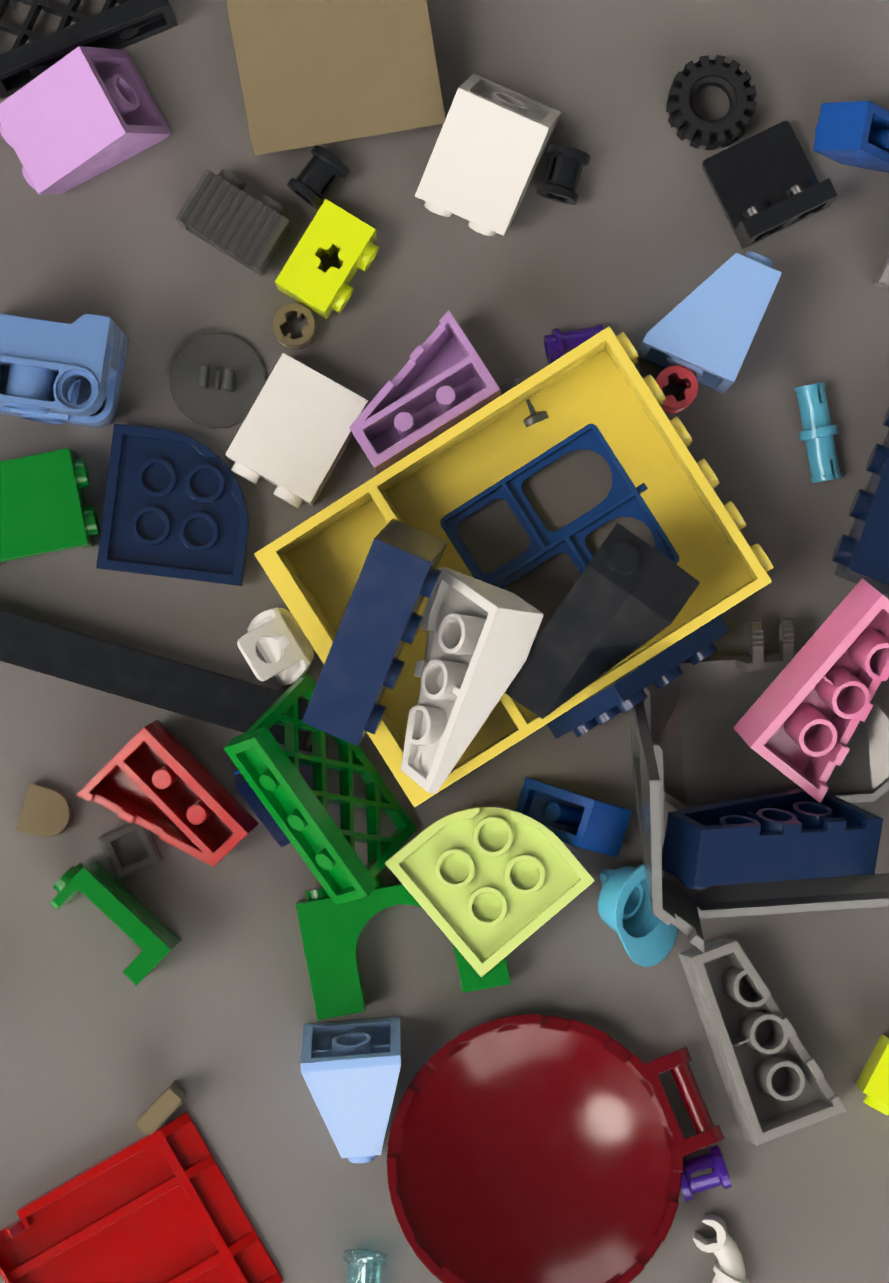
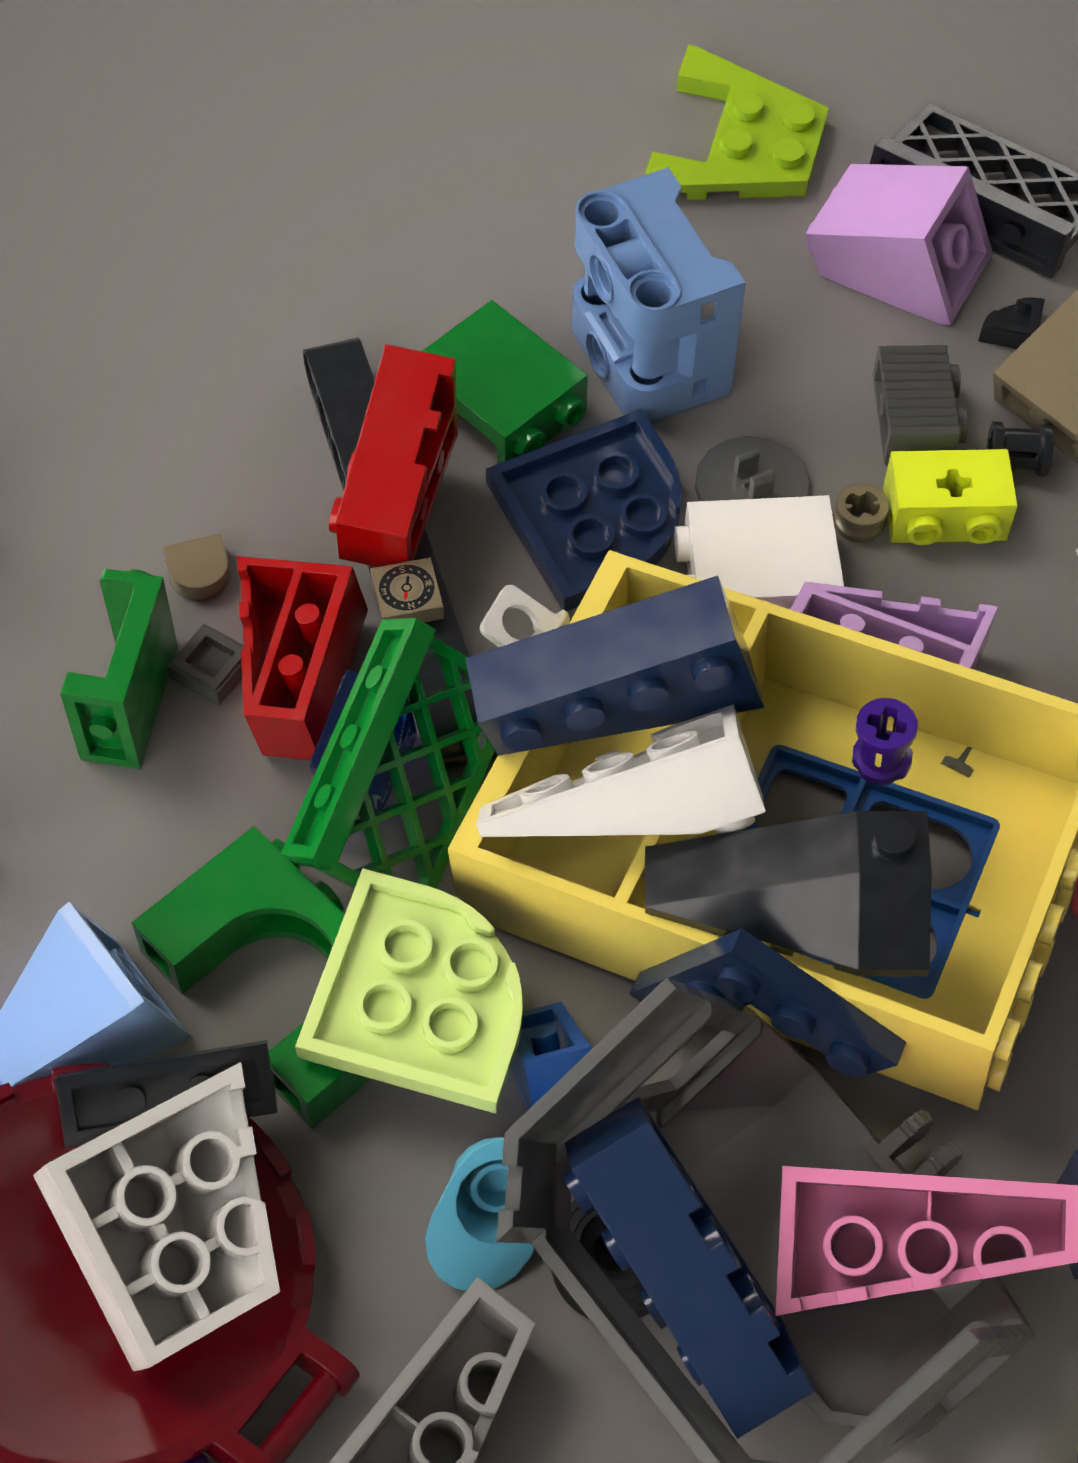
camera: 55 degrees right, 30 degrees down
(79, 646) = (397, 458): none -> red wedge
(180, 697) = (407, 591): none -> dark tan tile
(203, 87) = (1013, 323): none -> black tile
(456, 1067) = (111, 1095): none -> black plate
(538, 480) = (893, 744): none -> dark purple bush
(543, 1113) = (168, 1219): none -> white wedge

